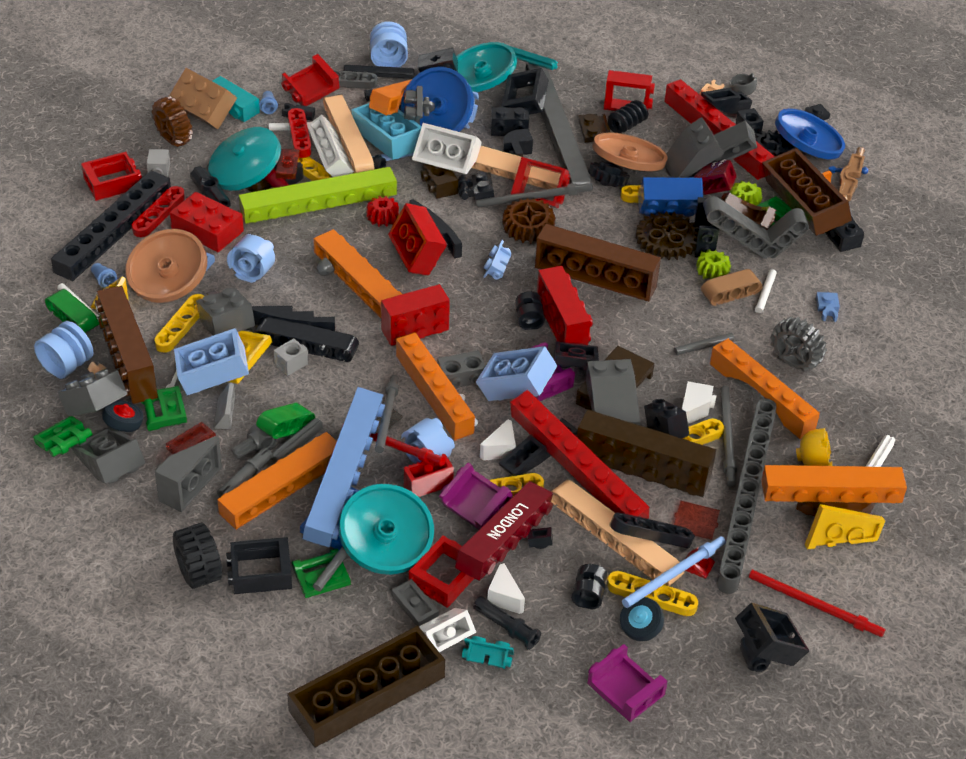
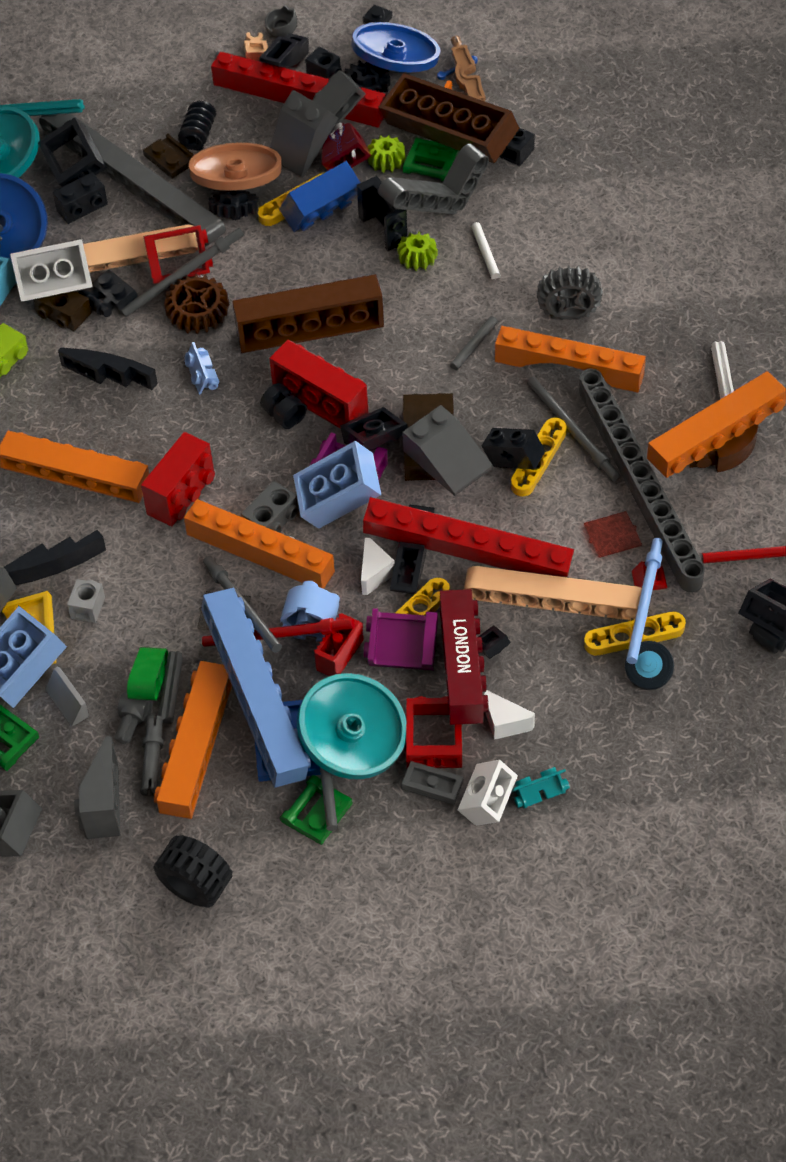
camera: 30 degrees left, 10 degrees up
(190, 438) = (64, 755): clear red plate -> none
(259, 550) = (274, 820): black window -> none
(316, 340) = (97, 565): black beam -> none
(325, 267) = (30, 478): dark grey hinge -> none
(366, 686) = (463, 894): dark brown brick -> none
(382, 211) = (35, 378): red gear -> none
(417, 239) = (107, 392): red brick -> none
(514, 626) = (542, 746): black pin -> none
(518, 142) = (111, 219): black brick -> none
(589, 586) = (578, 662): black wheel -> none
(625, 684) = (683, 738): magenta panel -> none
(627, 80) = (171, 84): red window -> none
(648, 453) = (525, 493): dark brown brick -> none
(652, 530) = (591, 571): black beam -> none
(667, 235) = (346, 242): dark brown gear -> none
(698, 401) = (519, 408): white slope -> none
(731, 286) = (452, 265): medium nougat beam -> none
(761, 215) = (424, 170): reddish brown arch -> none
(815, 448) = (668, 398): yellow cylinder -> none
(829, 304) = (554, 230): medium blue plate -> none
(841, 526) = (749, 460): yellow wing -> none

